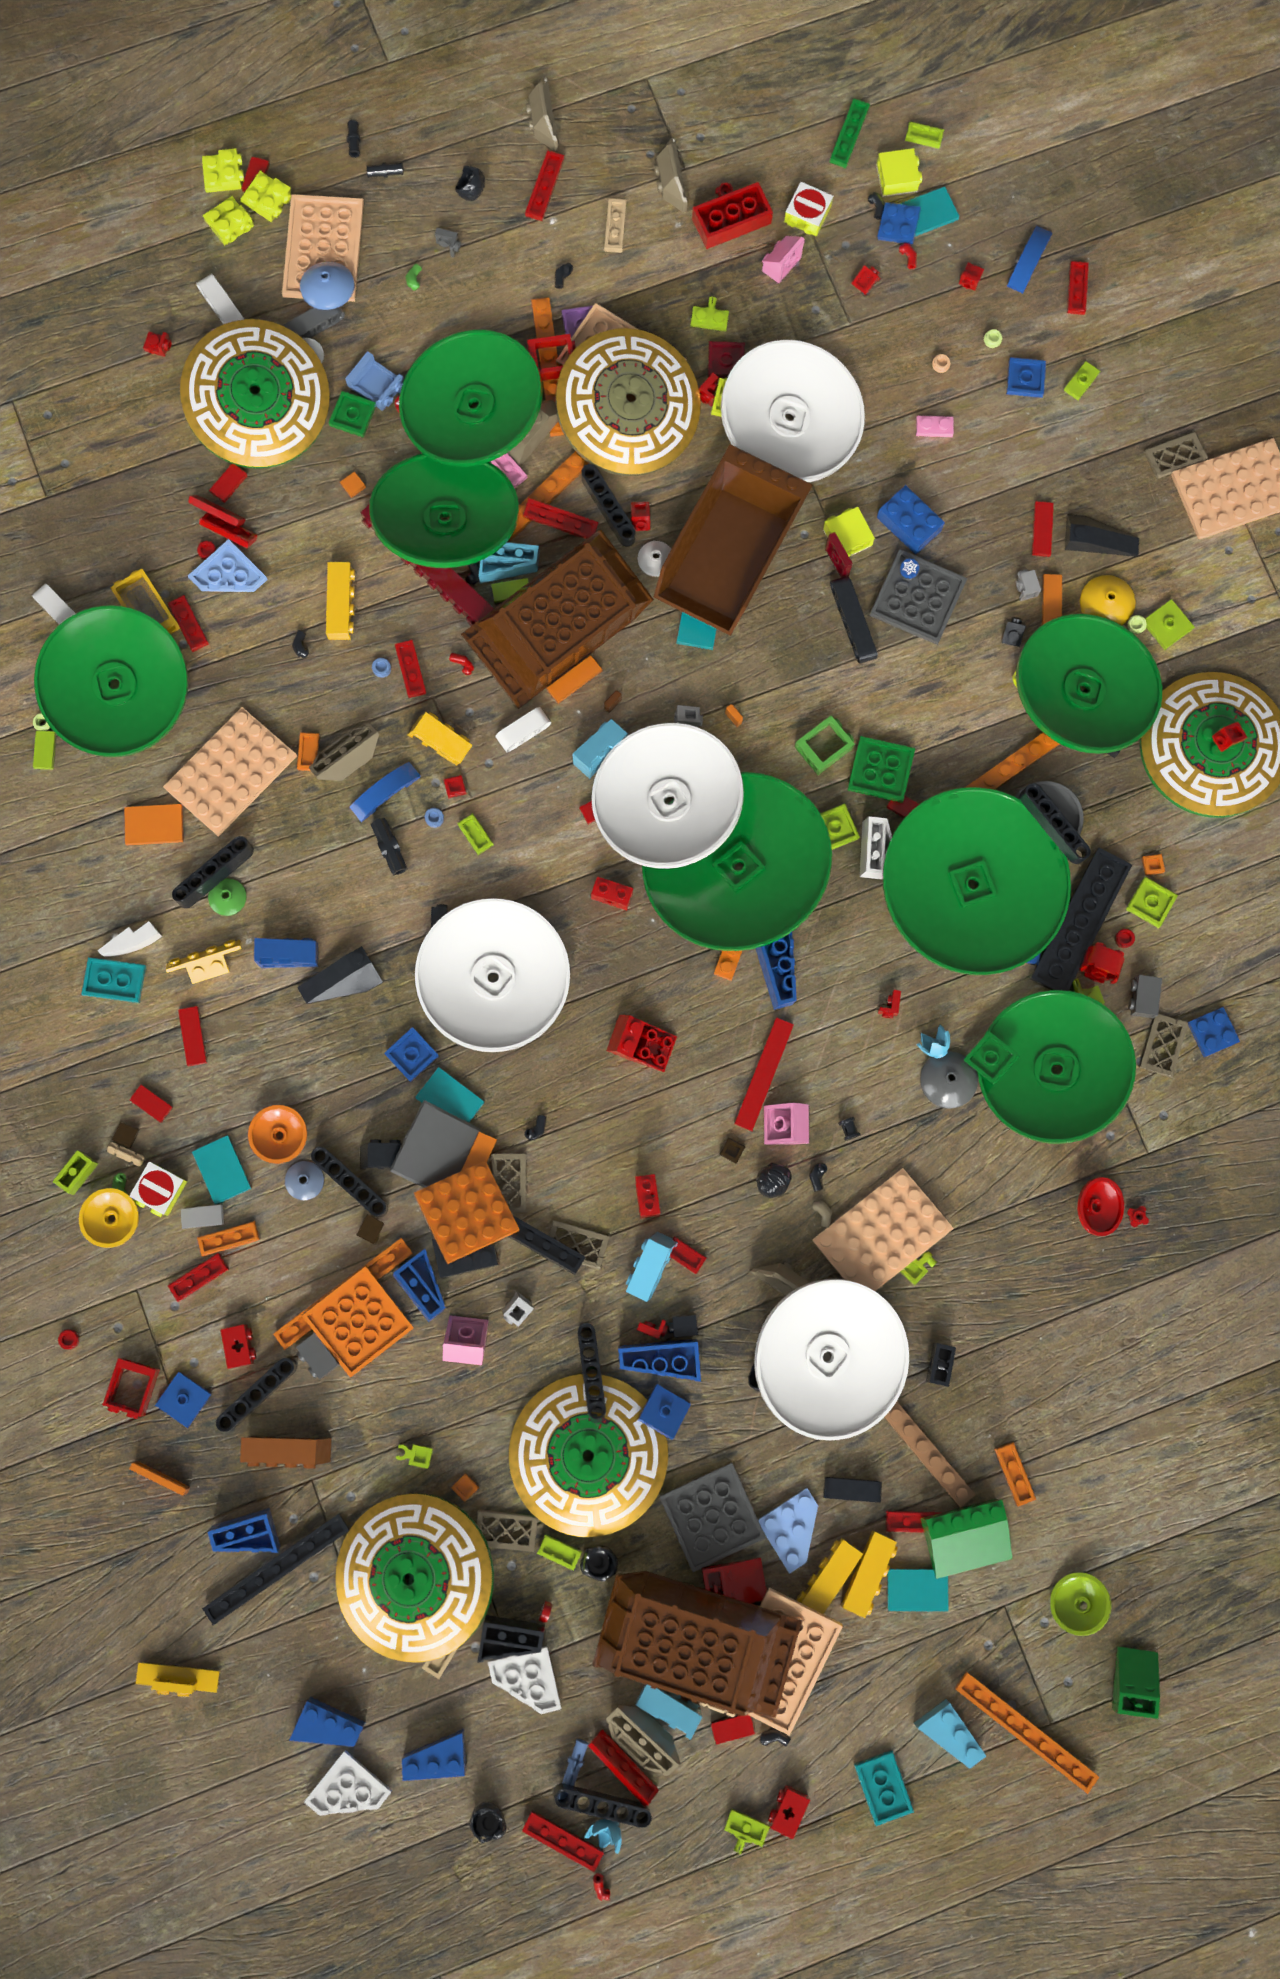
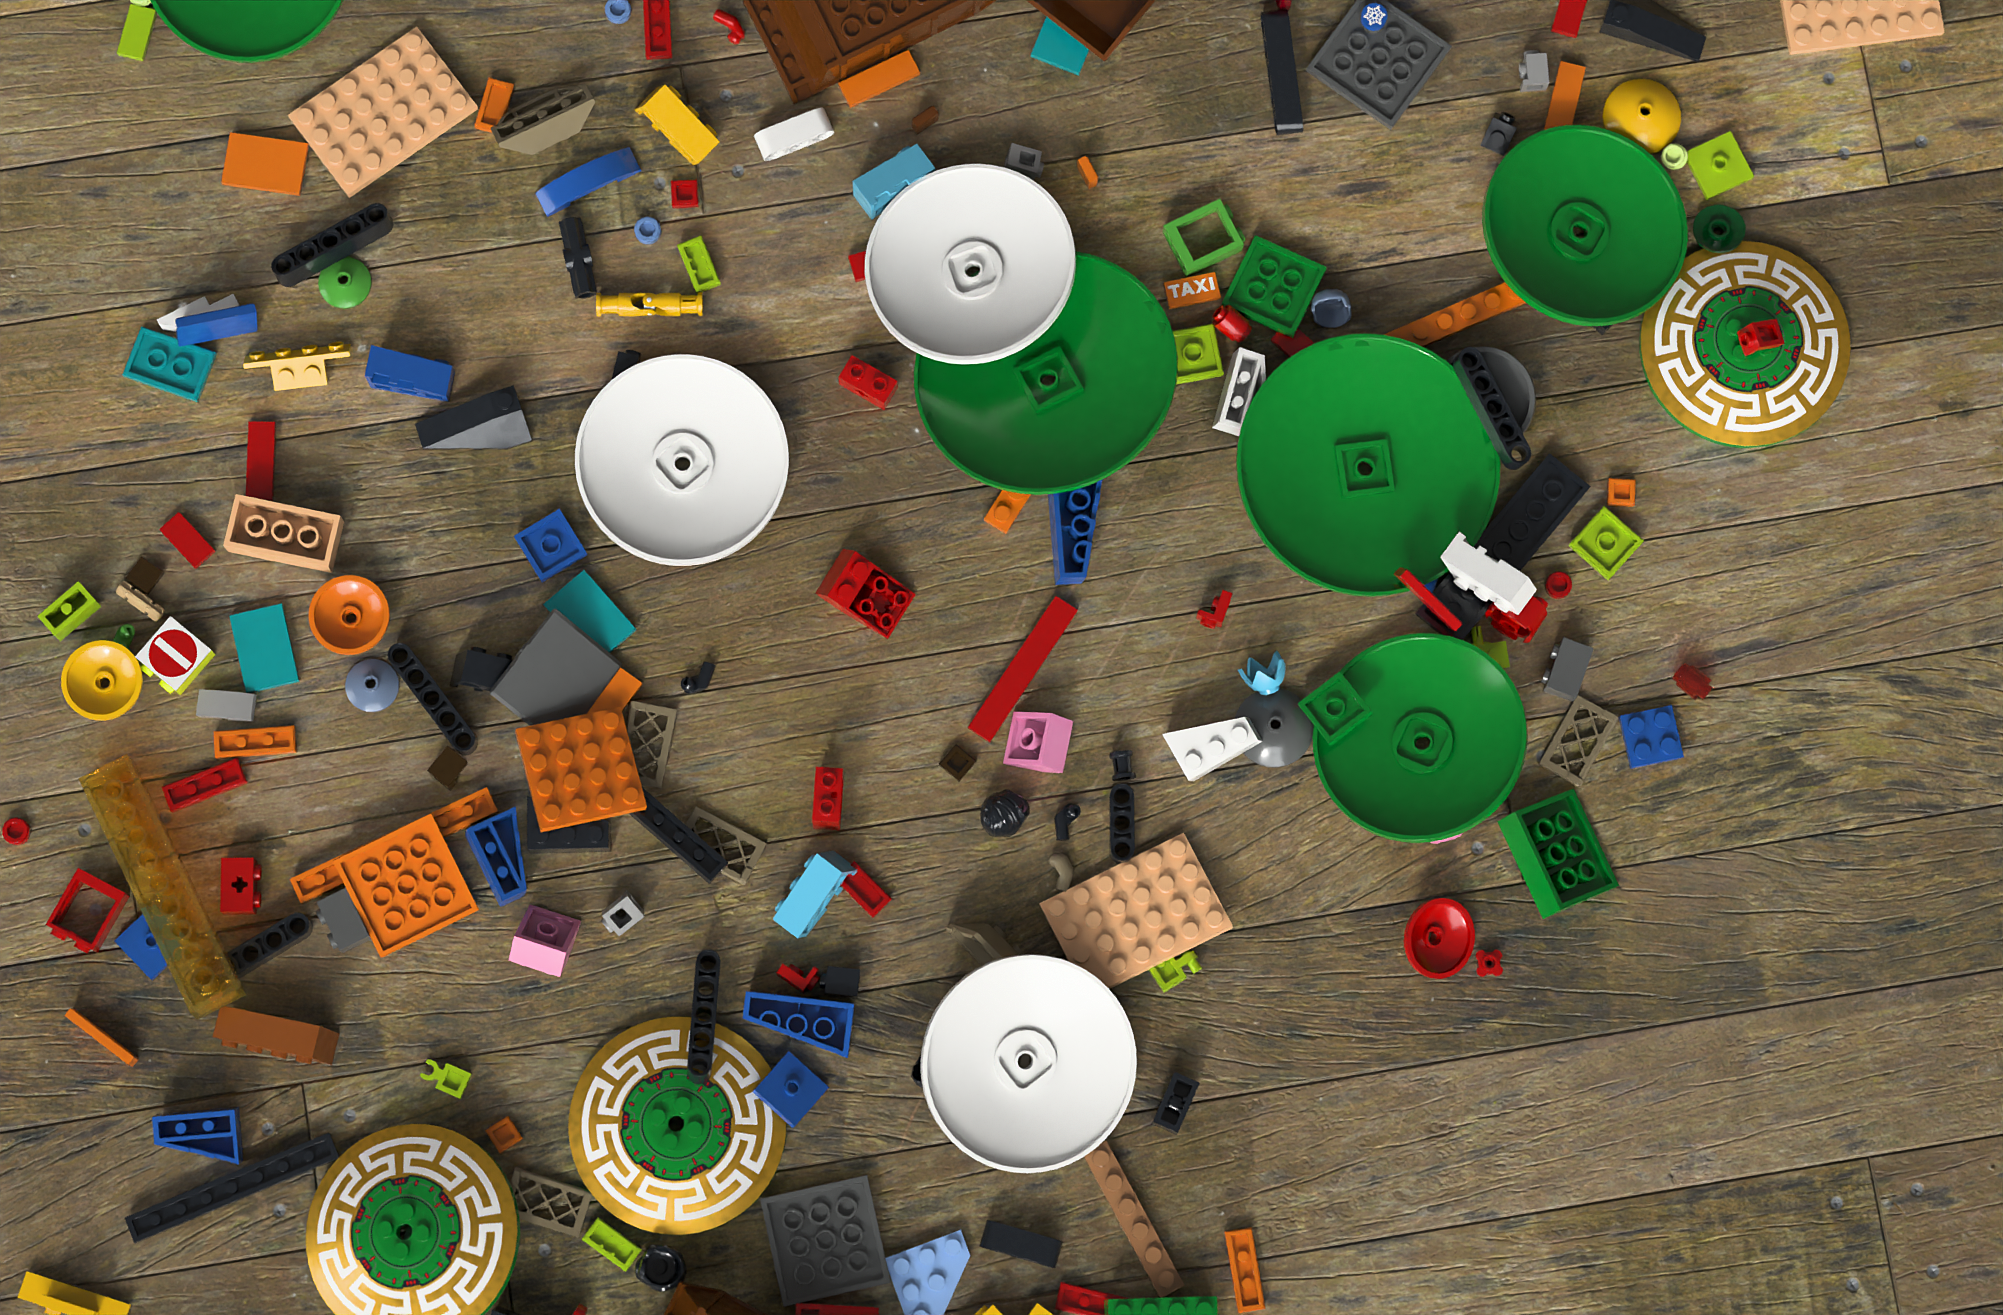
camera: 10 degrees right, 0 degrees up
(141, 945) = (216, 324): none -> blue tile
(181, 1360) = (162, 887): none -> clear yellow brick
(219, 1085) = (283, 533): none -> light nougat brick
(454, 867) = (654, 304): none -> yellow piece
(824, 783) = (1192, 290): none -> orange tile
(858, 801) = (1231, 323): none -> red brick
(860, 1161) = (1126, 811): none -> black beam
(909, 1102) = (1211, 745): none -> white wedge
(924, 776) = (1331, 308): none -> sand blue hair
(1039, 966) = (1428, 598): none -> red tile
(1080, 943) = (1487, 576): none -> white wedge
(1168, 1128) = (1558, 853): none -> green slope
(1179, 661) = (1722, 219): none -> dark green dish
(1234, 987) = (1692, 681): none -> clear red brick

